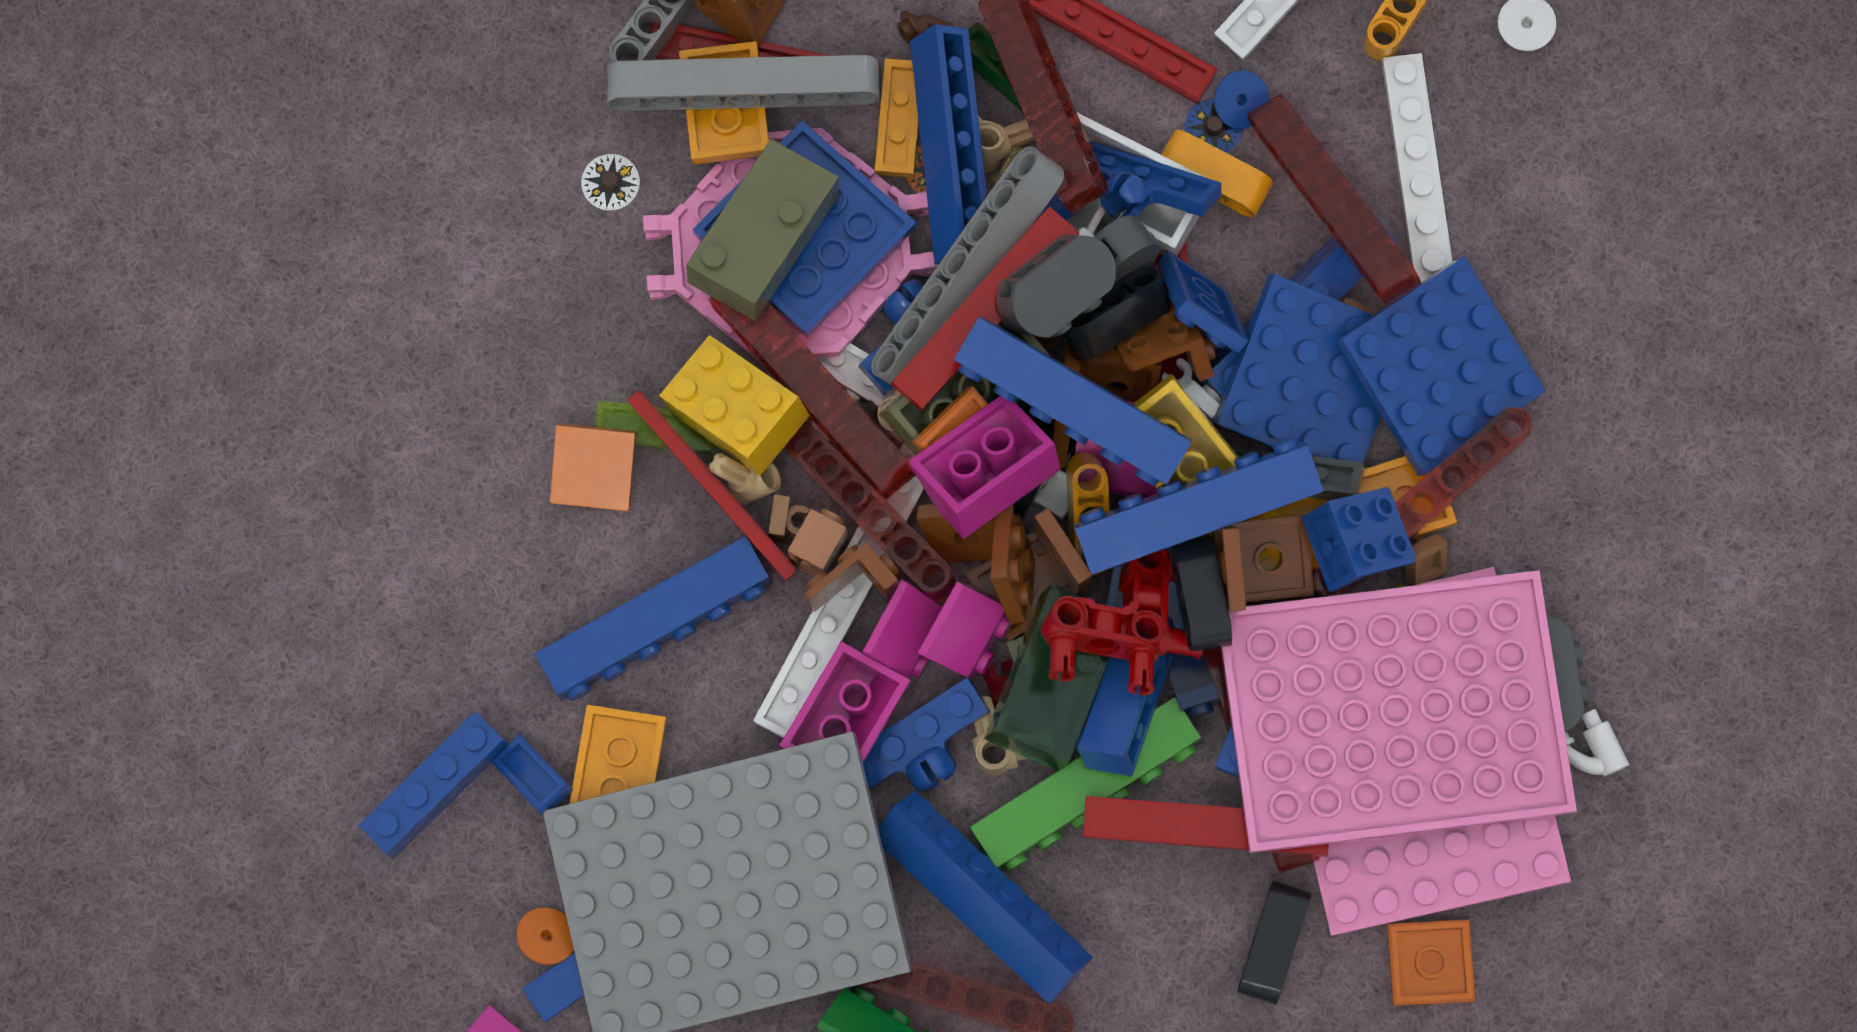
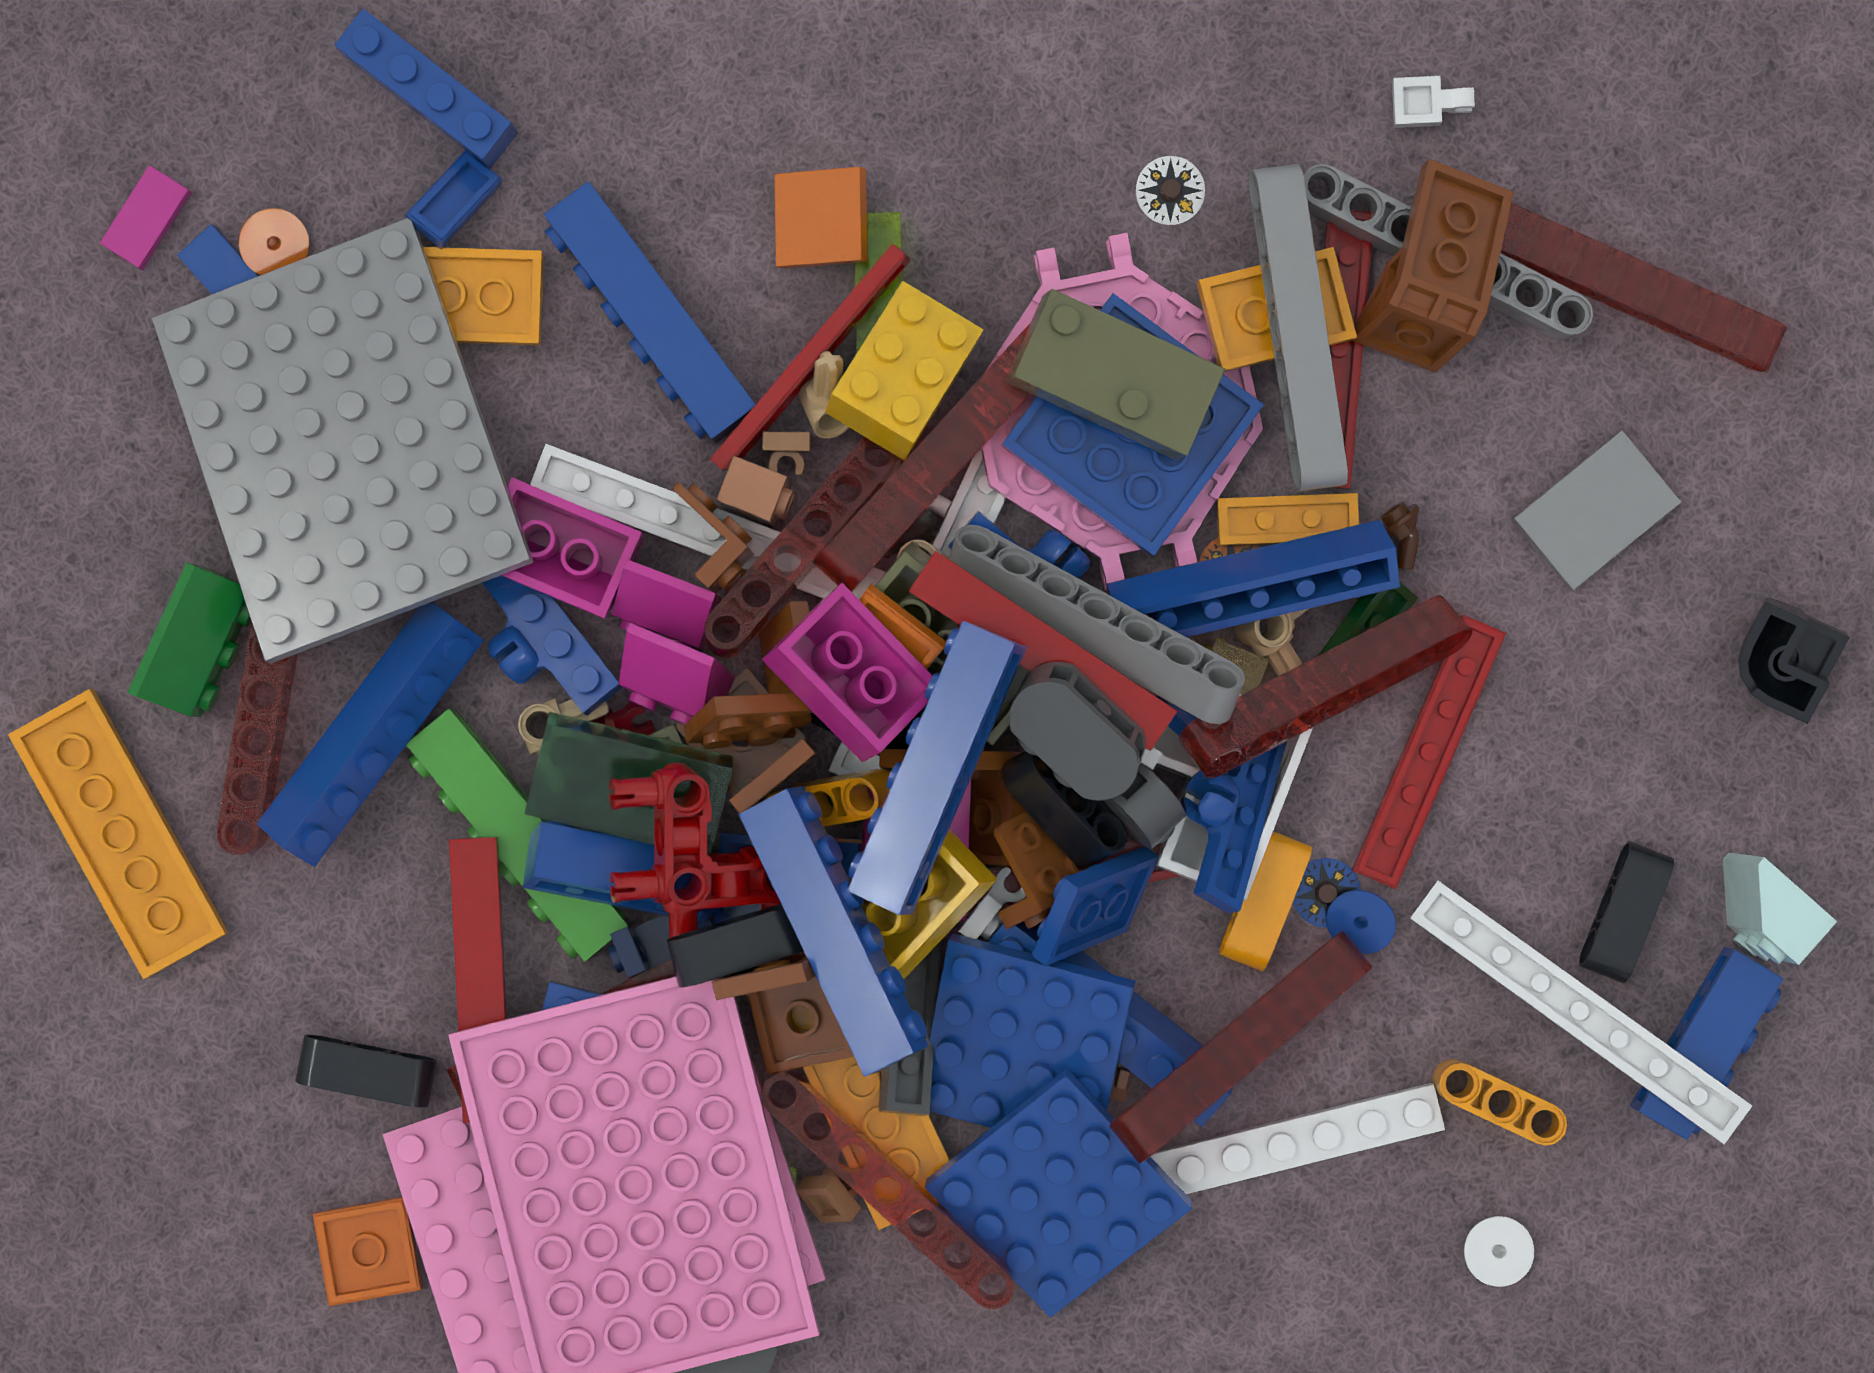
camera: 80 degrees right, 10 degrees up
(1358, 537) = (829, 1121): blue bracket -> none

